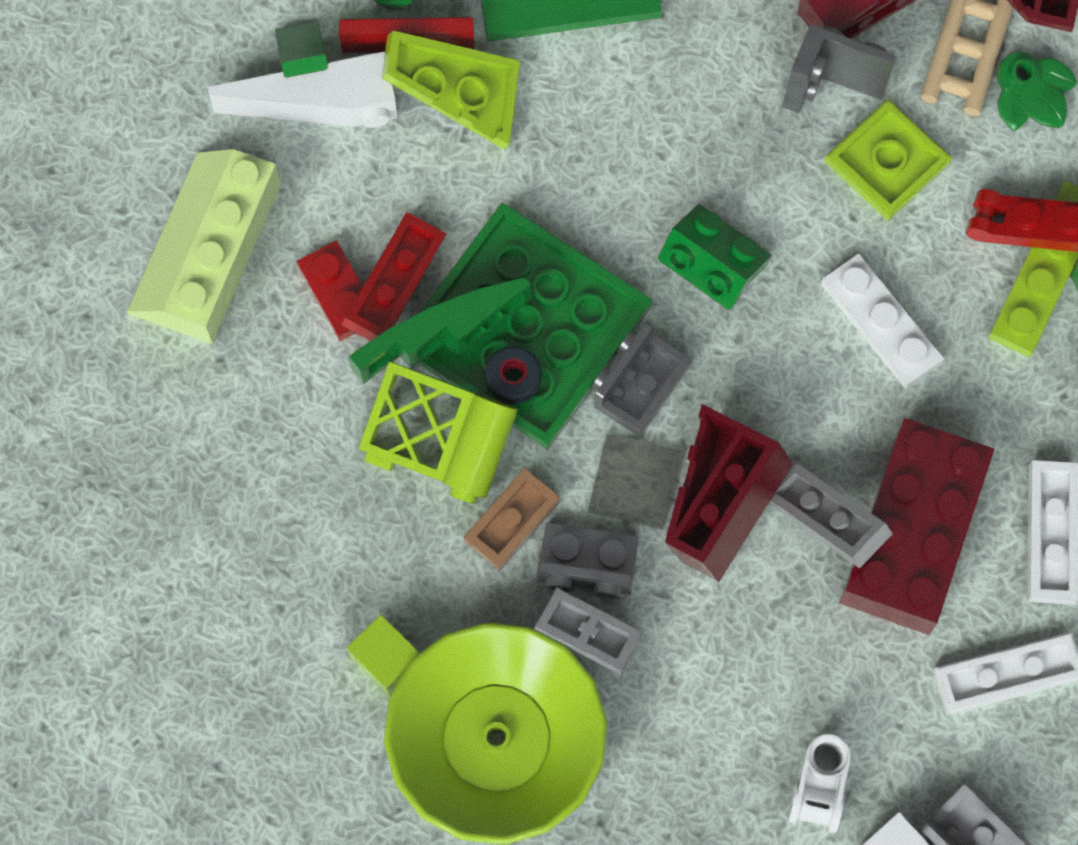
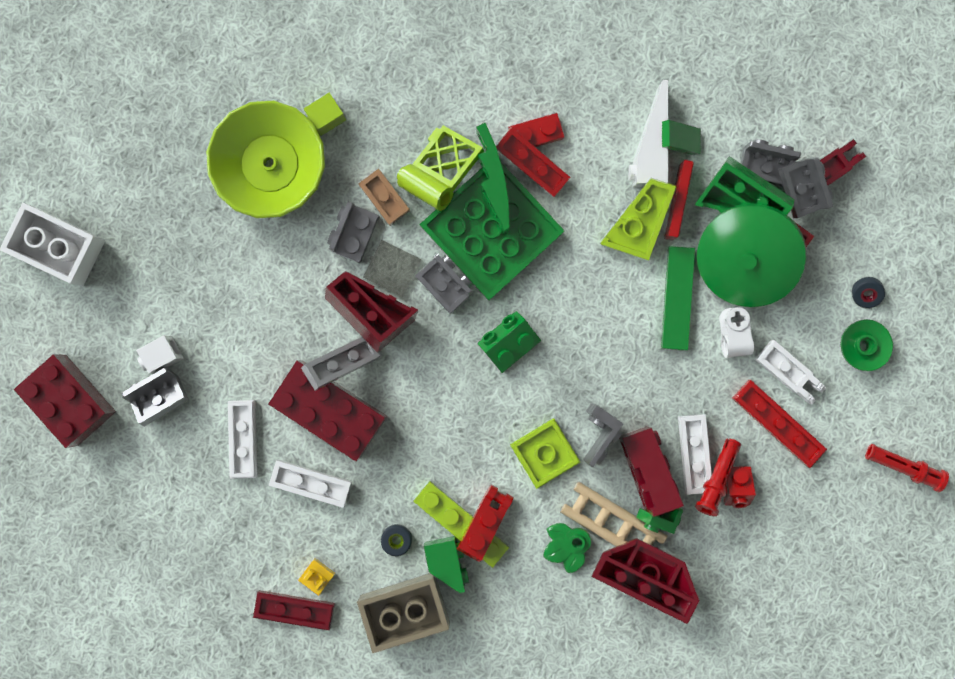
camera: 100 degrees right, 15 degrees up
(206, 243) = (577, 65): yellowish green slope -> none
(513, 358) = (464, 204): black wheel -> none
(589, 632) = (308, 219): light grey hinge -> none
(820, 786) = (202, 323): white piece -> none
(882, 321) = (451, 424): white plate -> none

